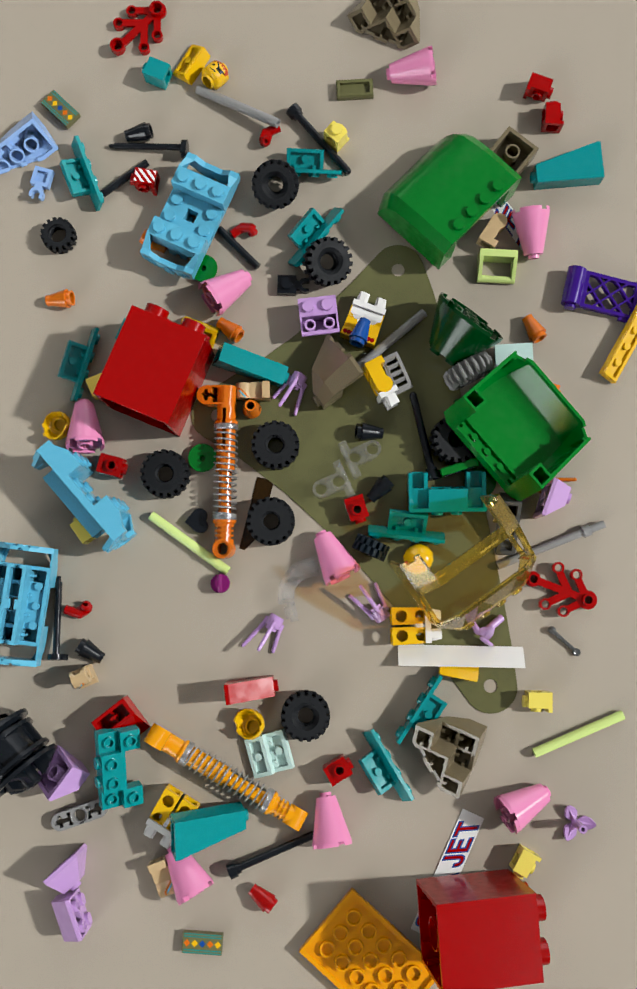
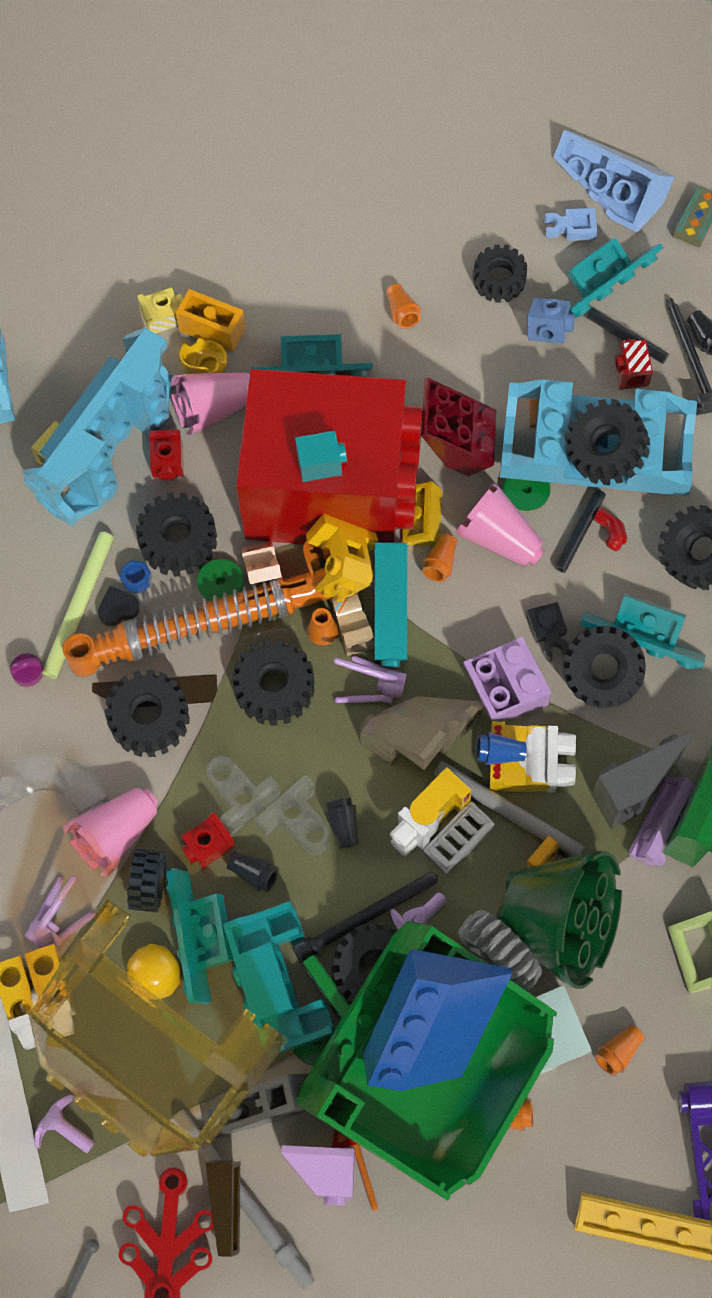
camera: 75 degrees right, 15 degrees down
(17, 446) = (160, 309): none -> light yellow brick
(32, 413) = (210, 320): none -> light orange brick
(102, 216) = (550, 320): none -> medium blue brick
(159, 289) = (458, 428): none -> dark red slope
(168, 368) = (320, 456): none -> teal brick
(183, 505) = (135, 576): none -> blue tile
(186, 205) = (599, 423): none -> black tyre
(200, 430) = (260, 562): none -> light nougat slope
(225, 377) = (349, 563): none -> yellow tile
(400, 265) = (628, 788): none -> dark grey slope
(420, 263) = (660, 821): none -> lavender hinge
(421, 332) = (545, 853): none -> light orange tile
(437, 408) = (420, 914): none -> lavender plant
(503, 417) = (432, 1020): none -> blue slope
(553, 554) = (224, 1193): none -> dark brown piece

